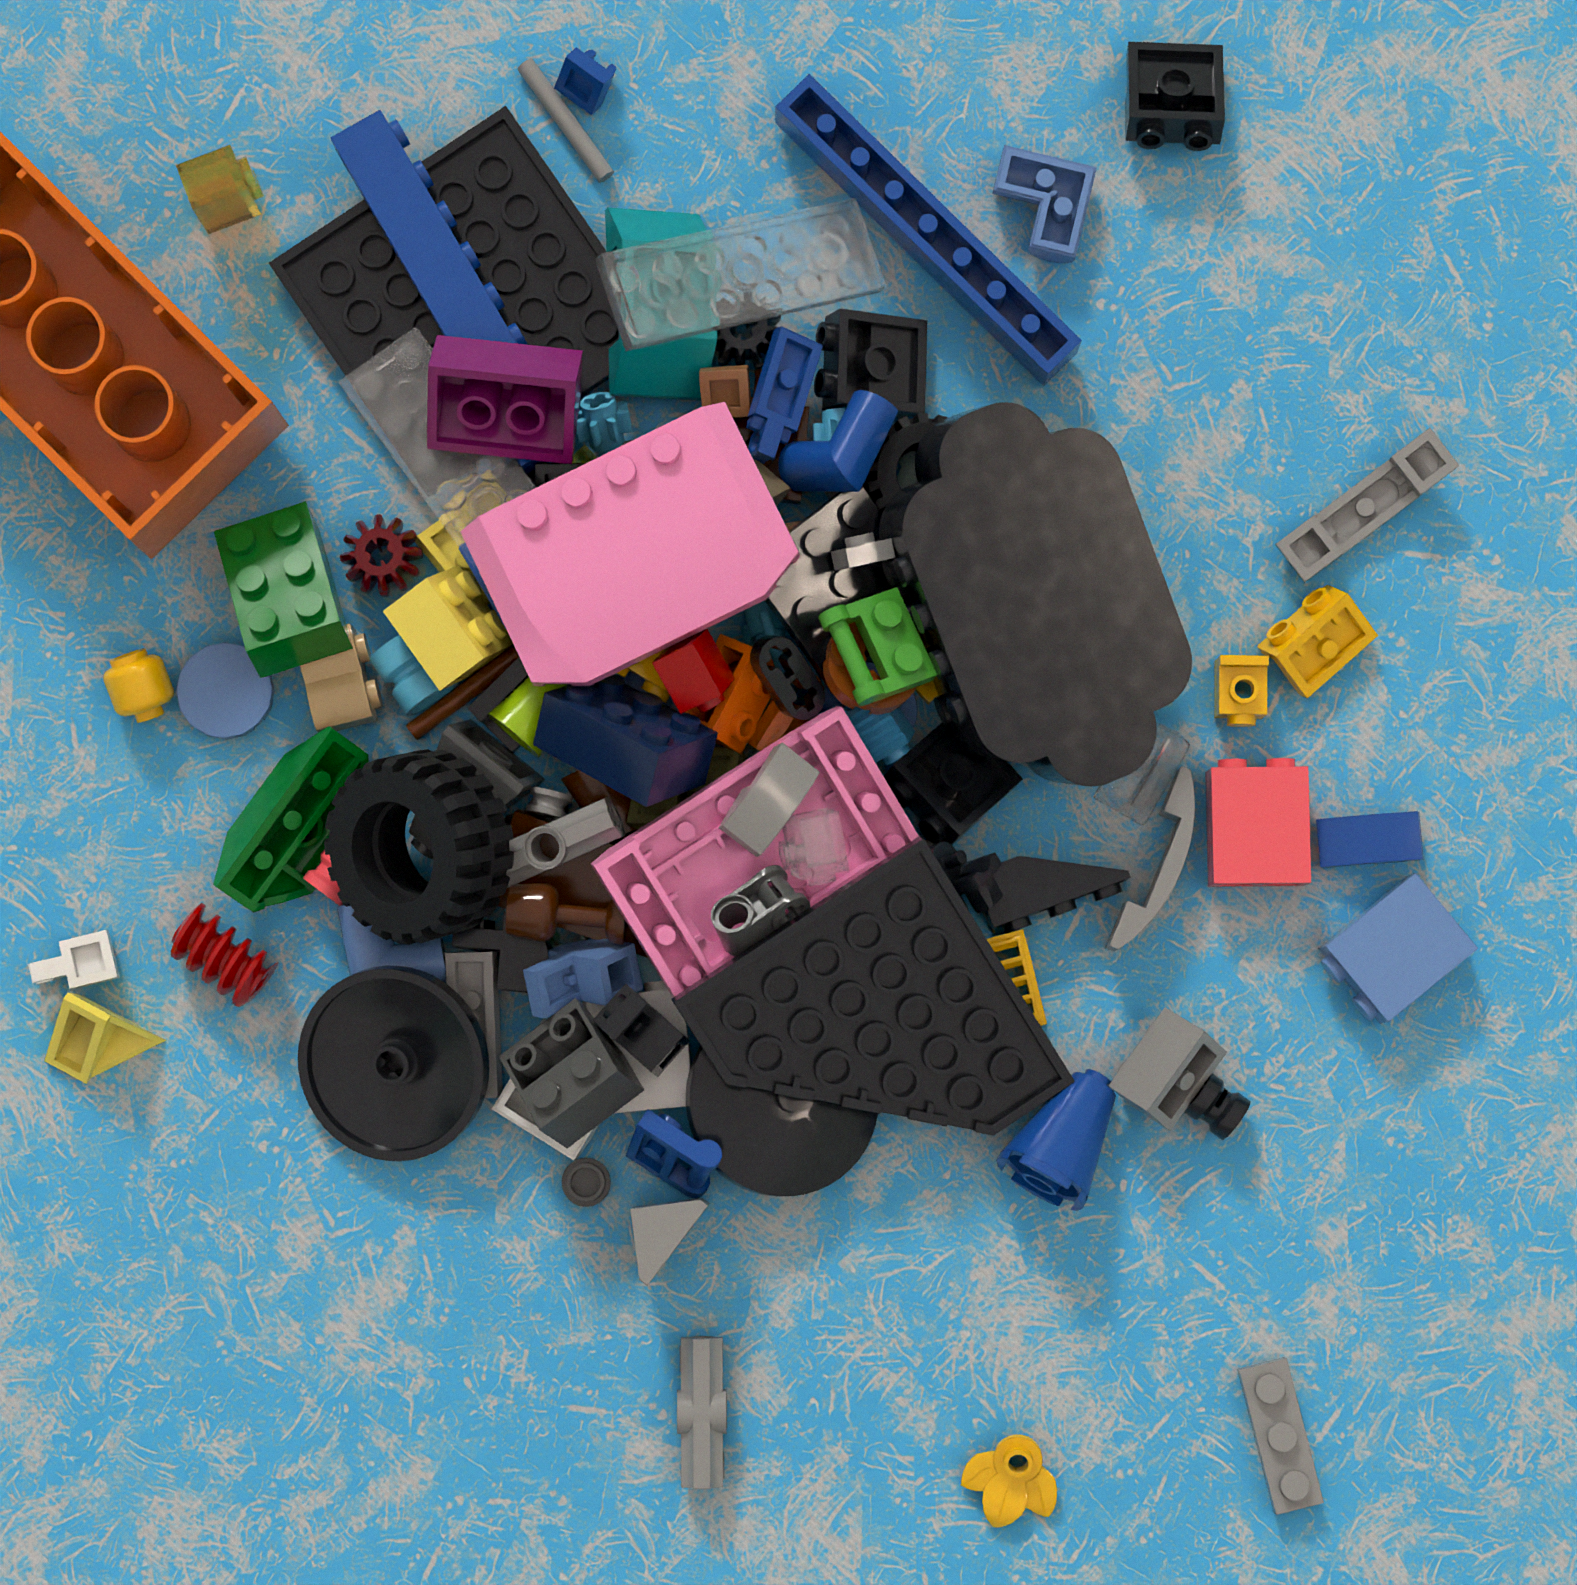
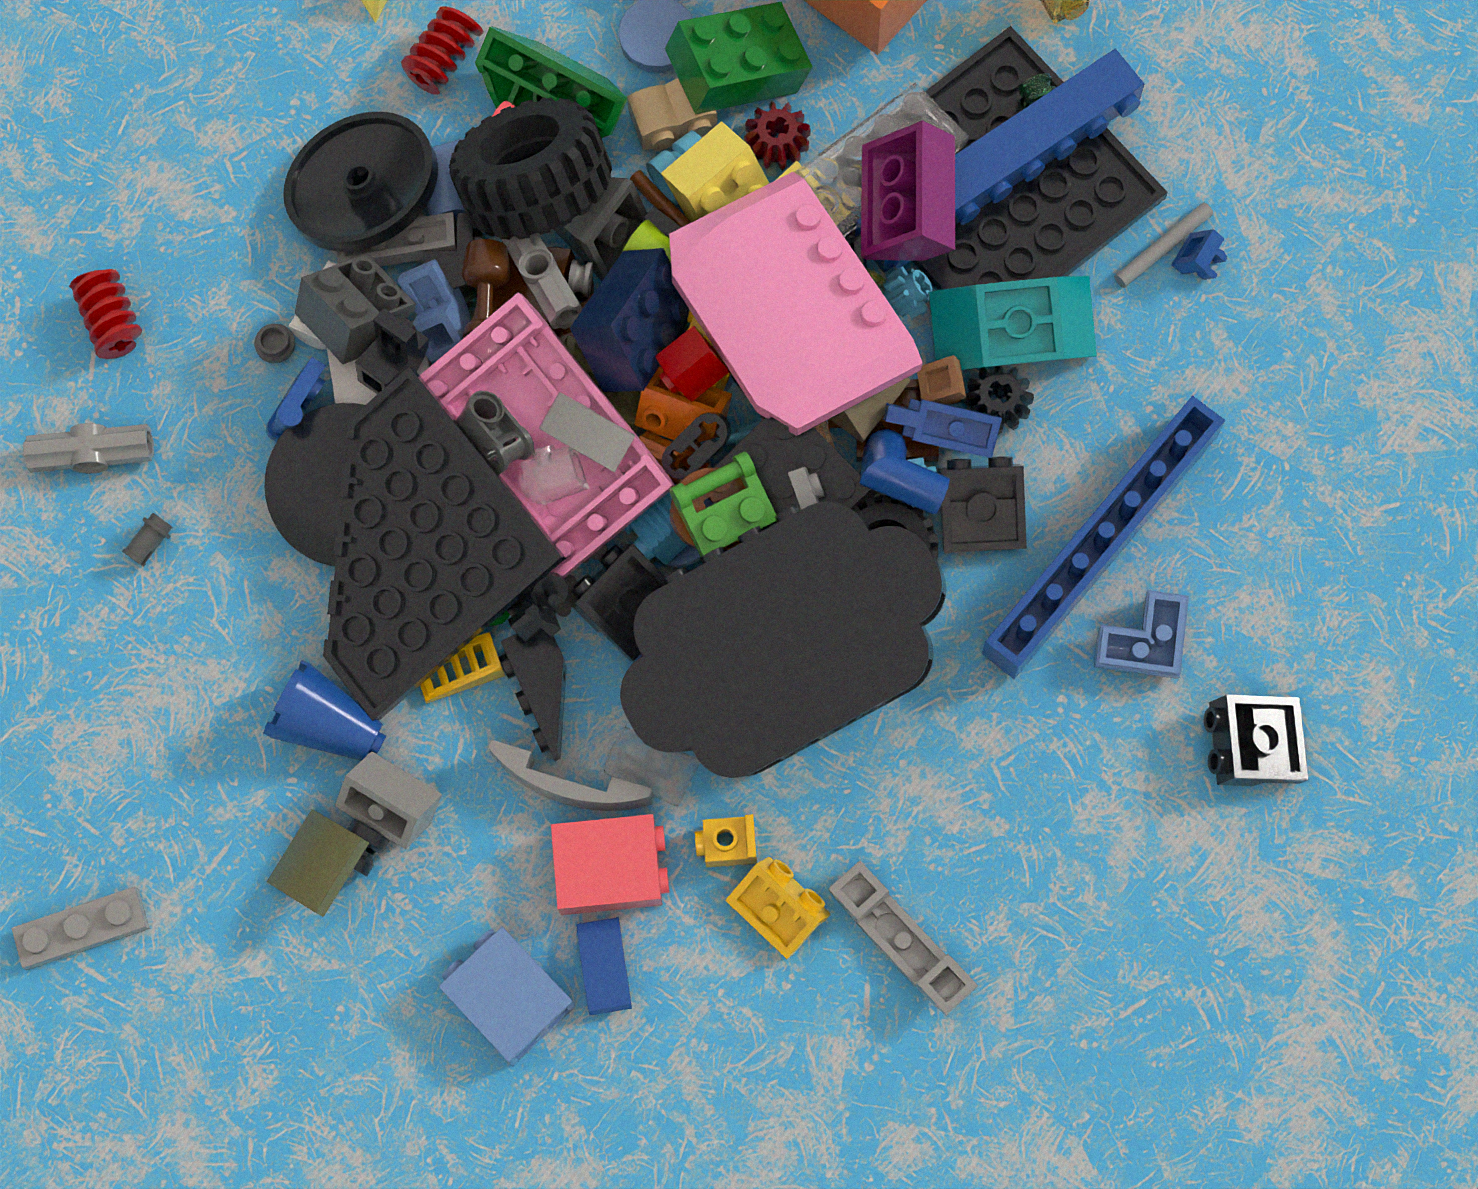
camera: 90 degrees right, 10 degrees down
(367, 237) = (1035, 88): none -> clear green bush
(530, 1385) = (106, 312): none -> red piece
(660, 1230) = (230, 394): light grey slope -> none
(739, 273) = (1041, 379): clear plate -> none
(822, 1343) = (147, 539): none -> dark grey pin
(1011, 1488) = (33, 702): yellow plate -> none
(1233, 1155) = (317, 862): none -> olive slope

